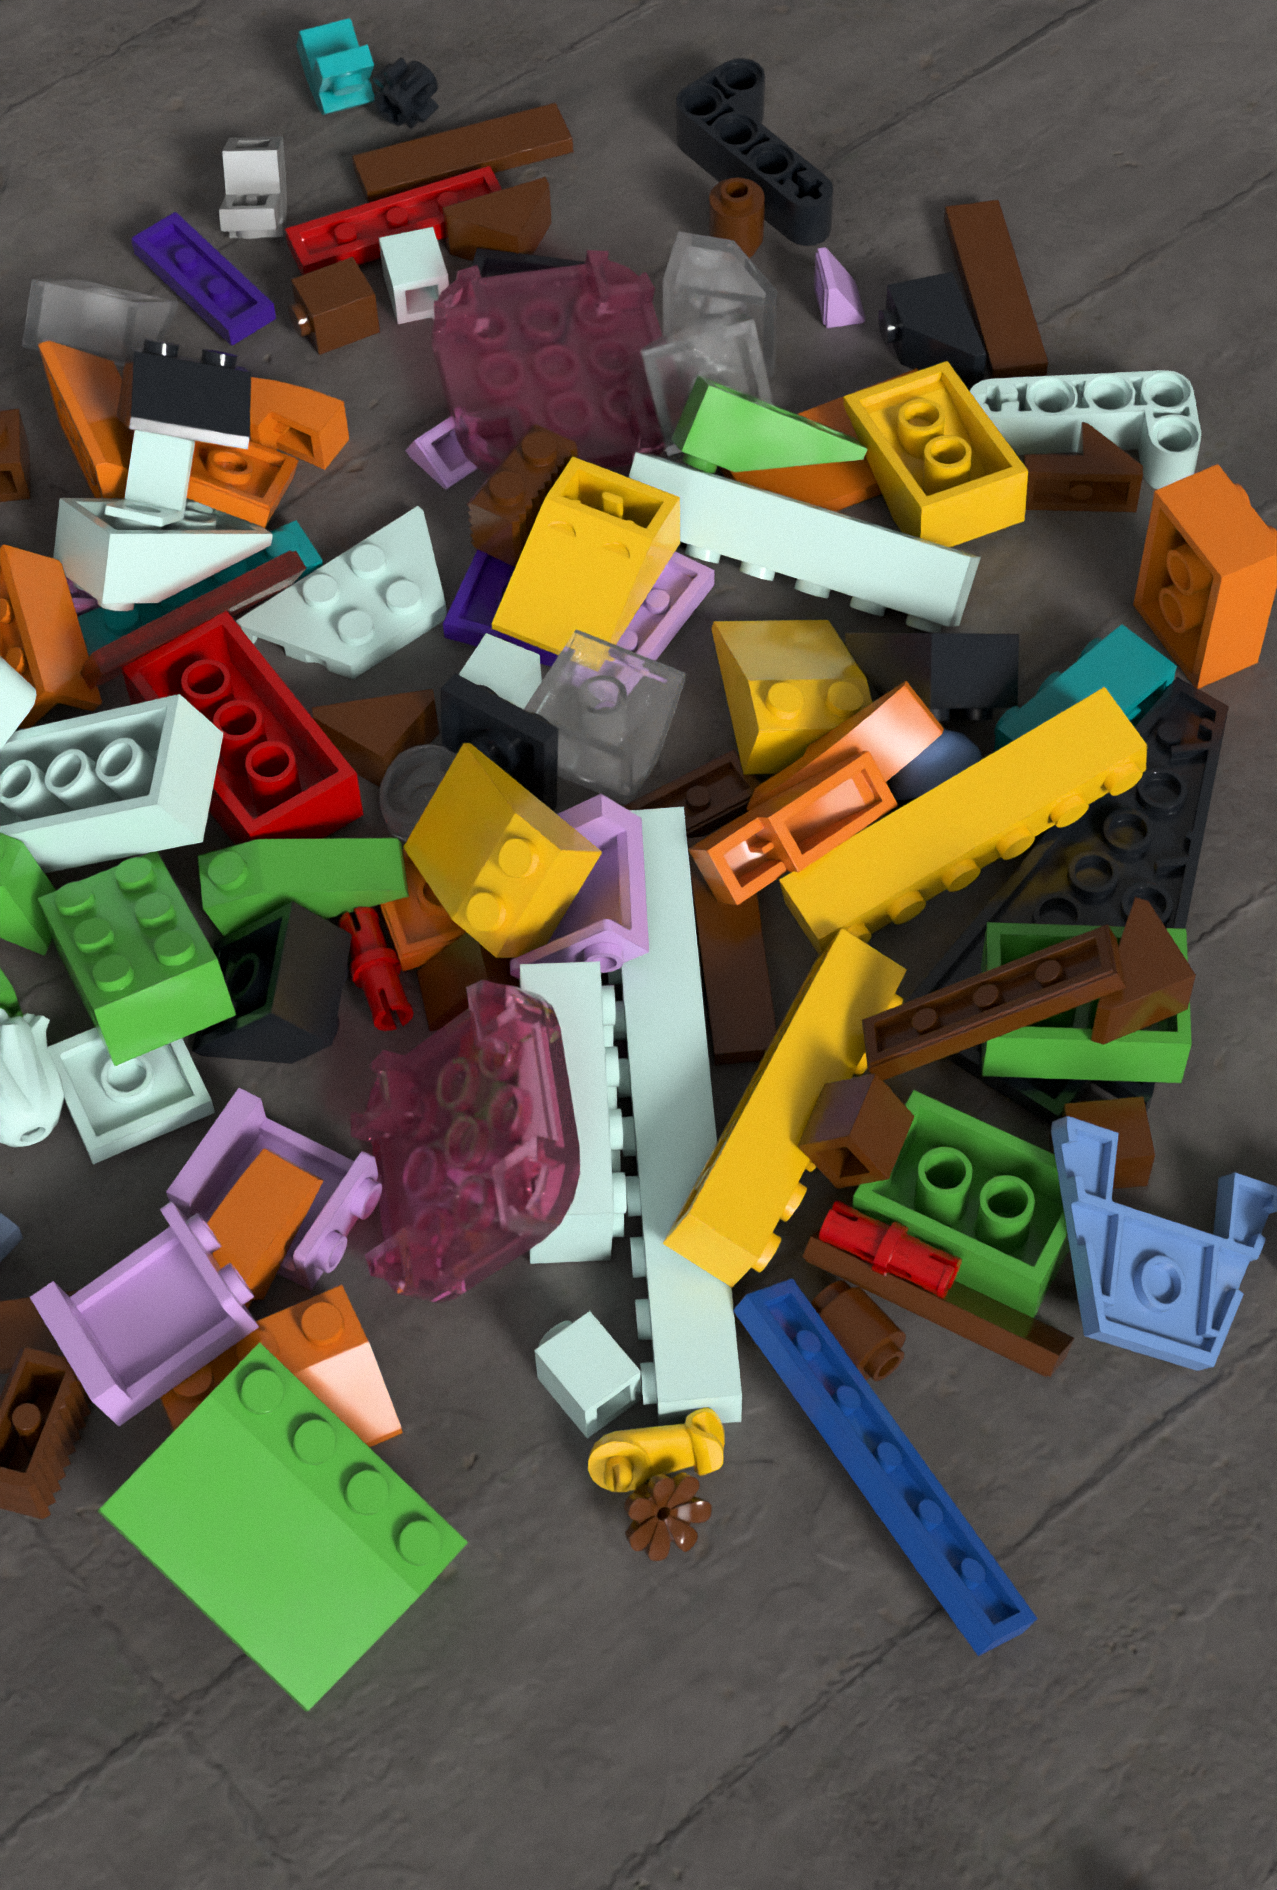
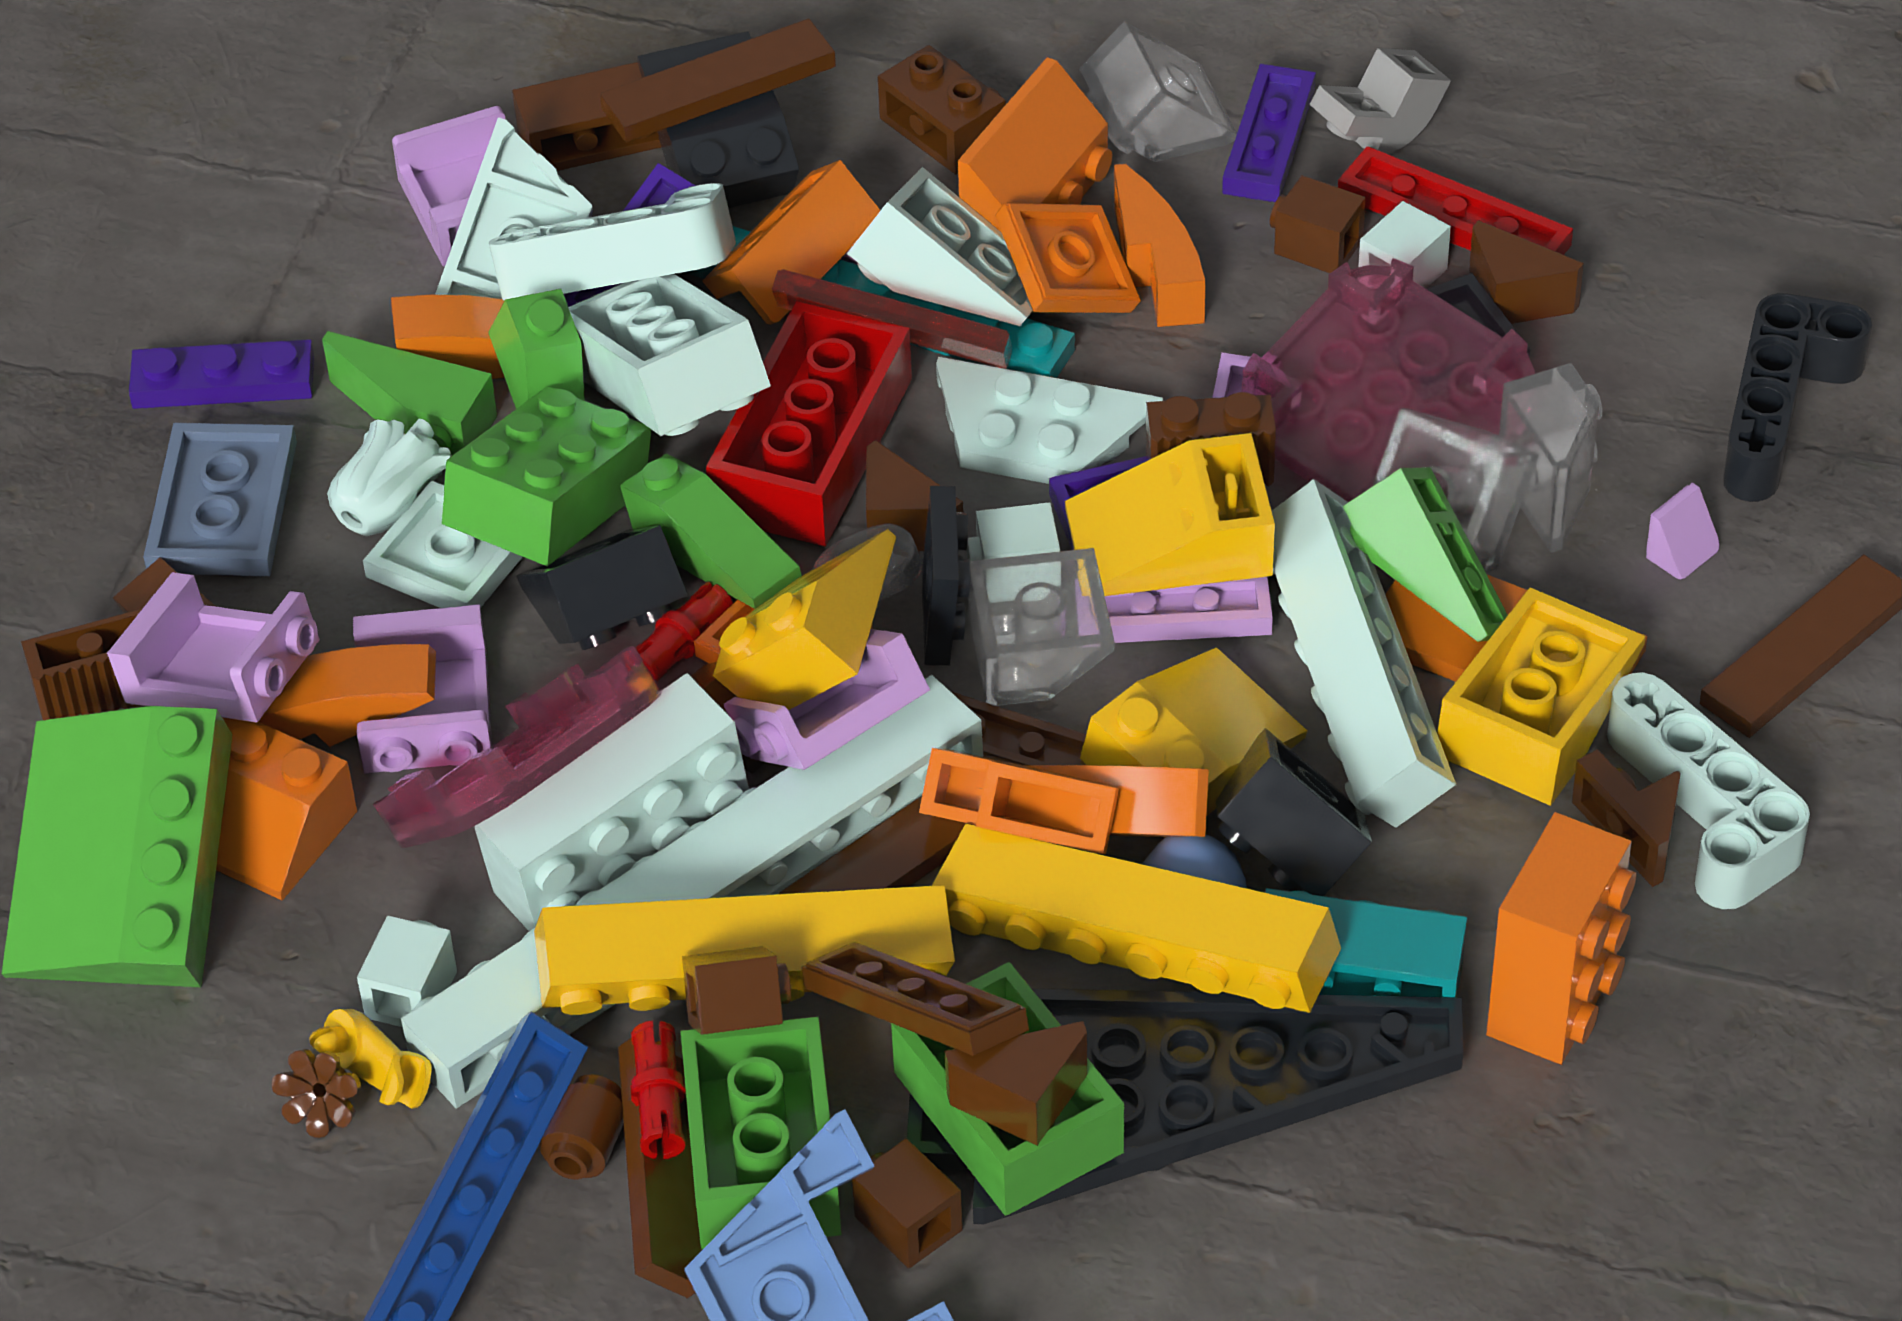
camera: 55 degrees right, 10 degrees down
(156, 480) = (983, 211): light aqua bracket -> none
(185, 394) = (1076, 169): black slope -> none
(336, 66) = (1578, 72): teal brick -> none
(405, 93) = (1598, 131): black gear -> none
(495, 143) = (1593, 213): reddish brown tile -> none
(737, 213) = (1682, 416): reddish brown brick -> none
(932, 326) = (1704, 620): black slope -> none

